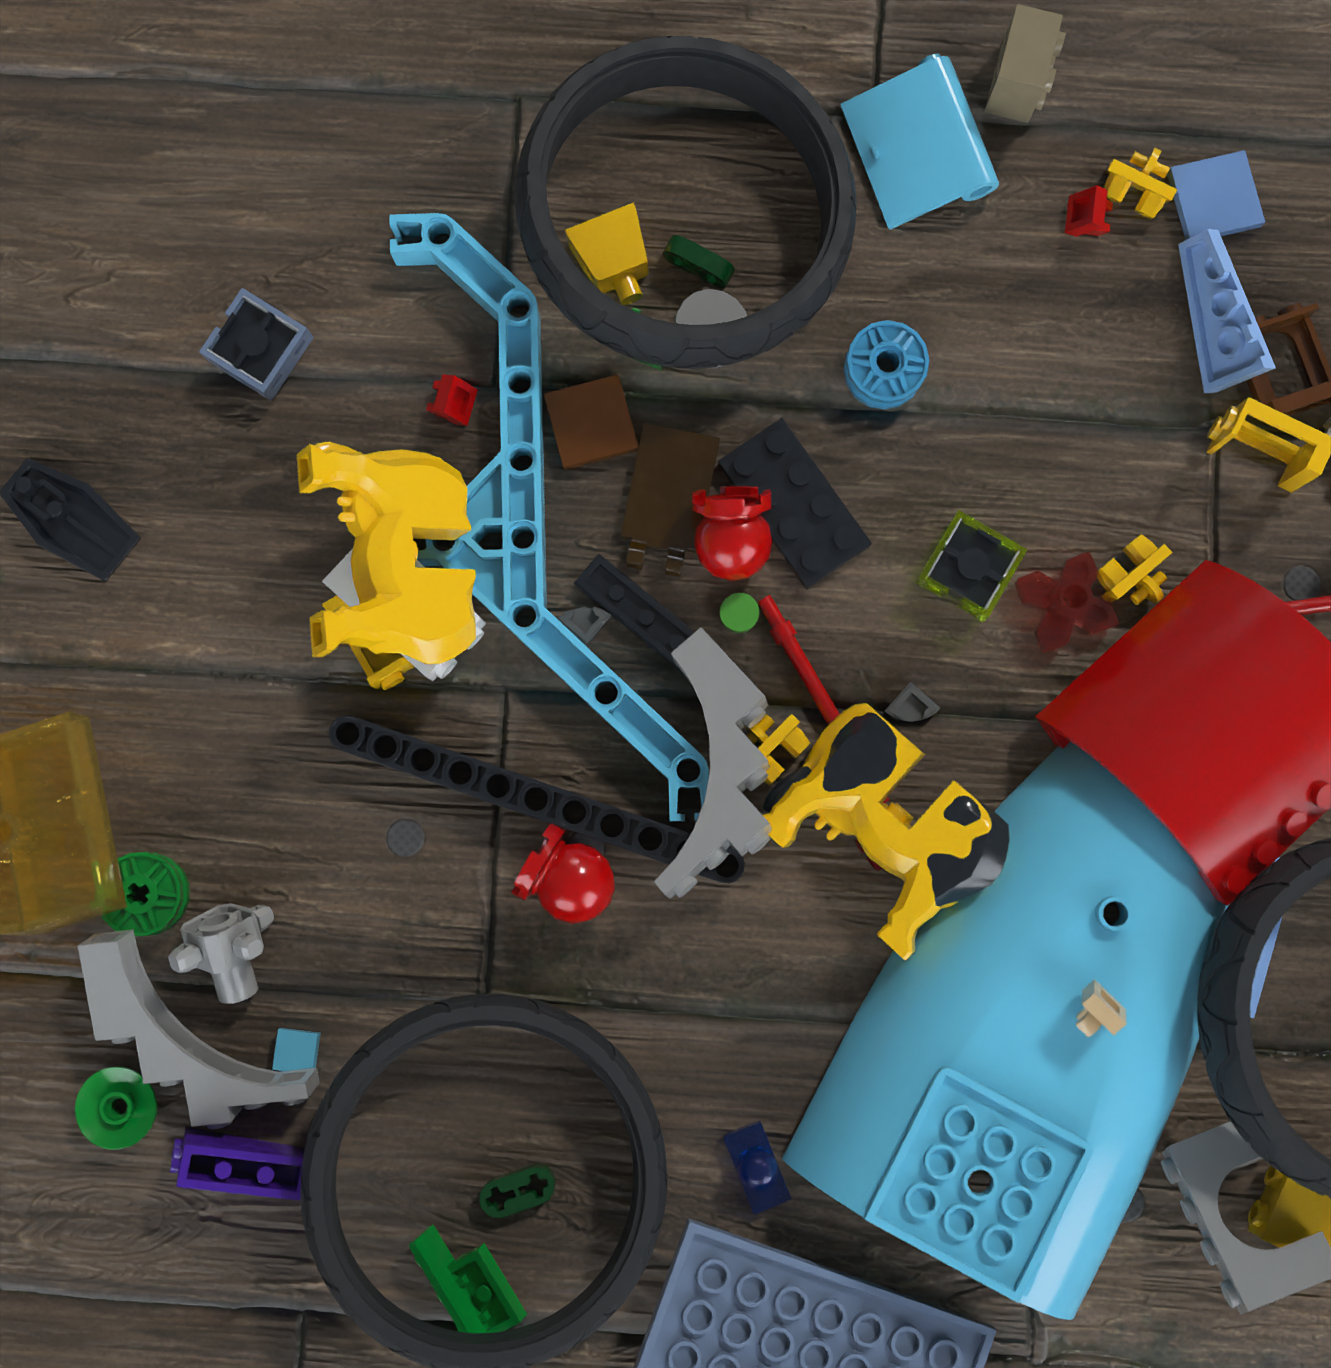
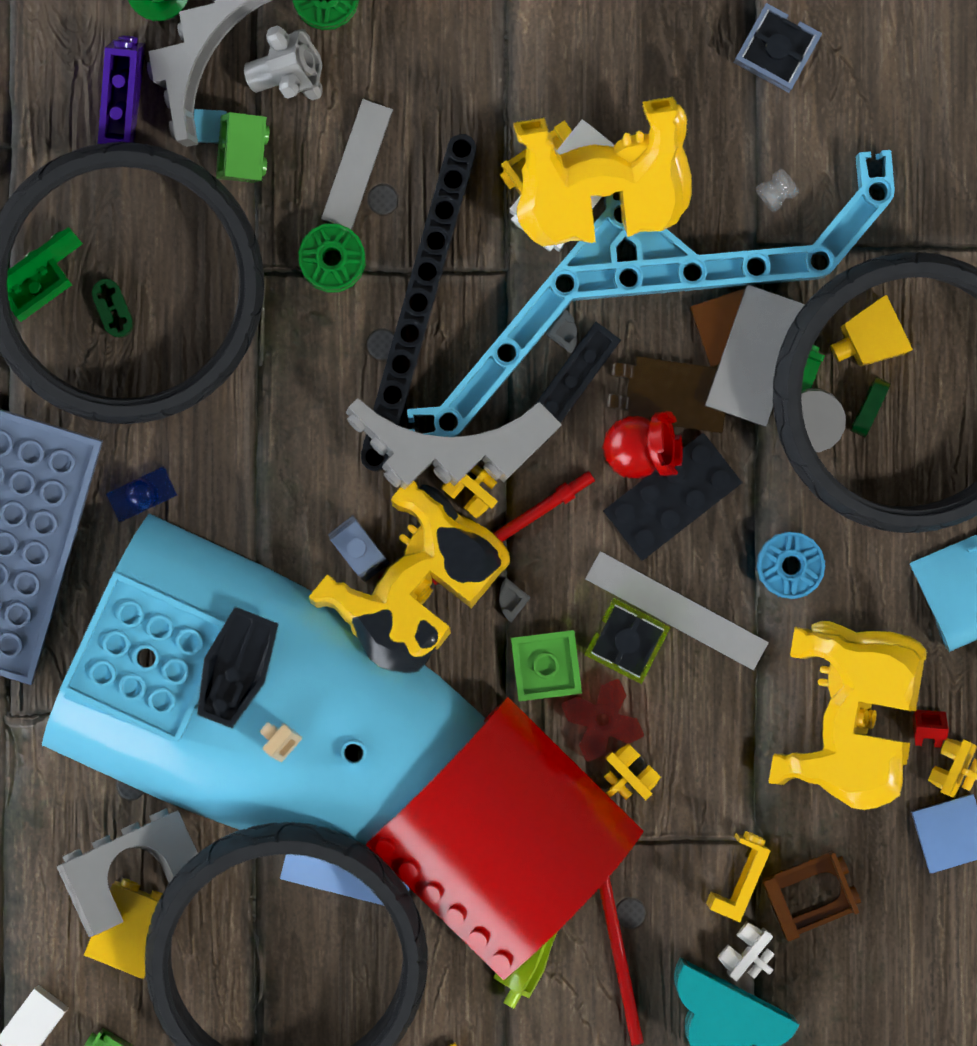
camera: 80 degrees right, 5 degrees up
(324, 1011) = (242, 147): none -> bright green hinge
(359, 867) = (357, 164): none -> light grey tile
(429, 355) = (777, 190): none -> clear wheel
(448, 902) = (332, 238): none -> green wheel
(453, 400) = (740, 212): red tile -> none
(569, 879) = (356, 332): red tile -> none
(628, 394) = (749, 359): none -> light grey tile
(739, 613) = (579, 456): bright green tile -> none
(840, 894) = (358, 549): none -> sand blue torso
(933, 506) = (676, 610): none -> light grey tile
(996, 667) = (546, 665): none -> bright green plate
(999, 1063) = (236, 667): none -> black piece
(1024, 284) = (862, 671): none -> yellow animal
(1222, 321) = (840, 837): light blue wing -> none

